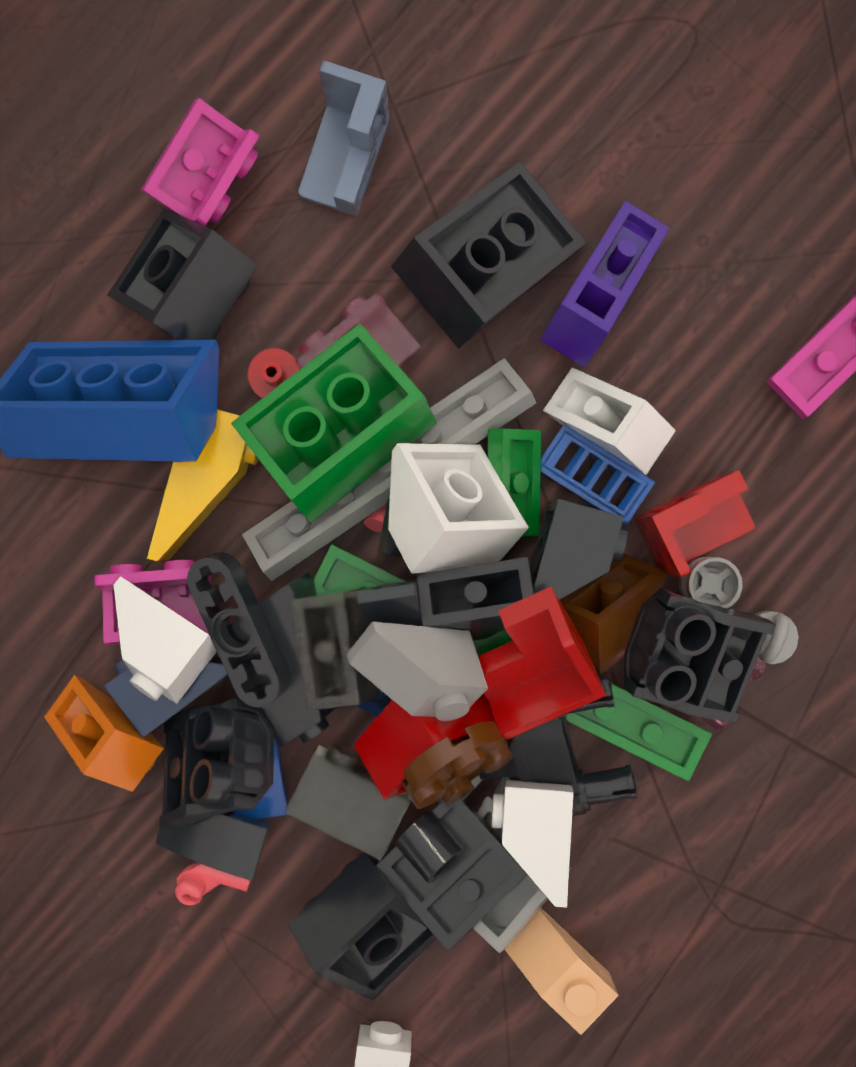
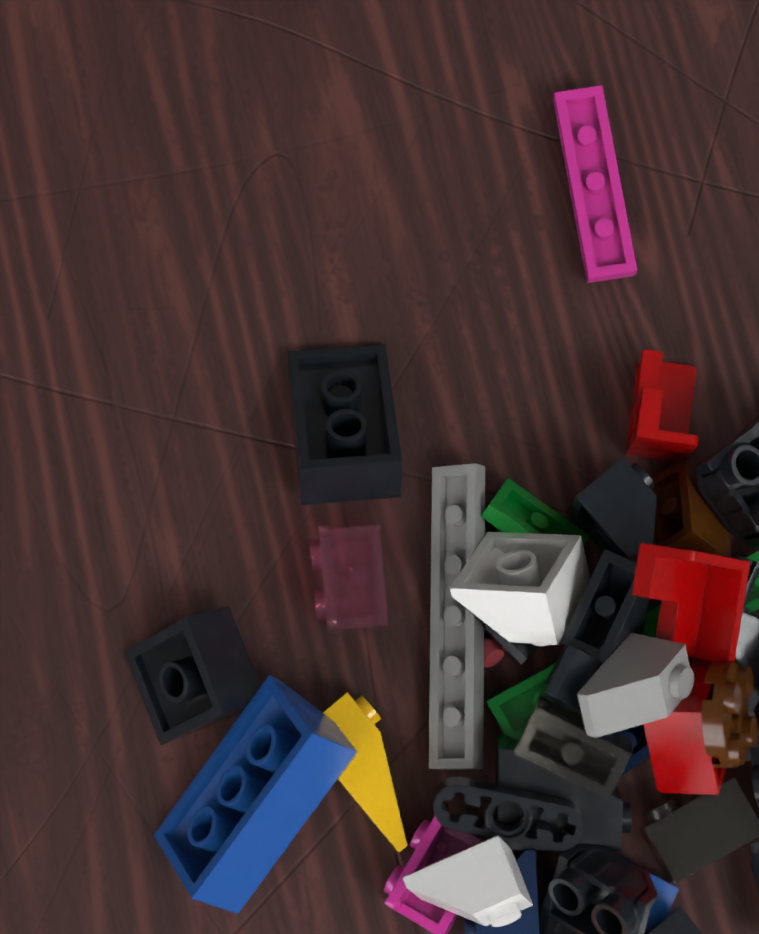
camera: 55 degrees left, 10 degrees down
(201, 164) = (118, 596): dark pink bracket -> none
(267, 362) = (319, 668): red tile -> none
(335, 422) = (396, 628): green slope -> none
(346, 139) = (180, 474): sand blue panel -> none
(604, 284) = (430, 353): dark purple slope -> none
(611, 419) = (536, 419): white slope -> none
(632, 500) = (582, 437): blue slope -> none
(719, 583) = (722, 424): light grey wheel -> none

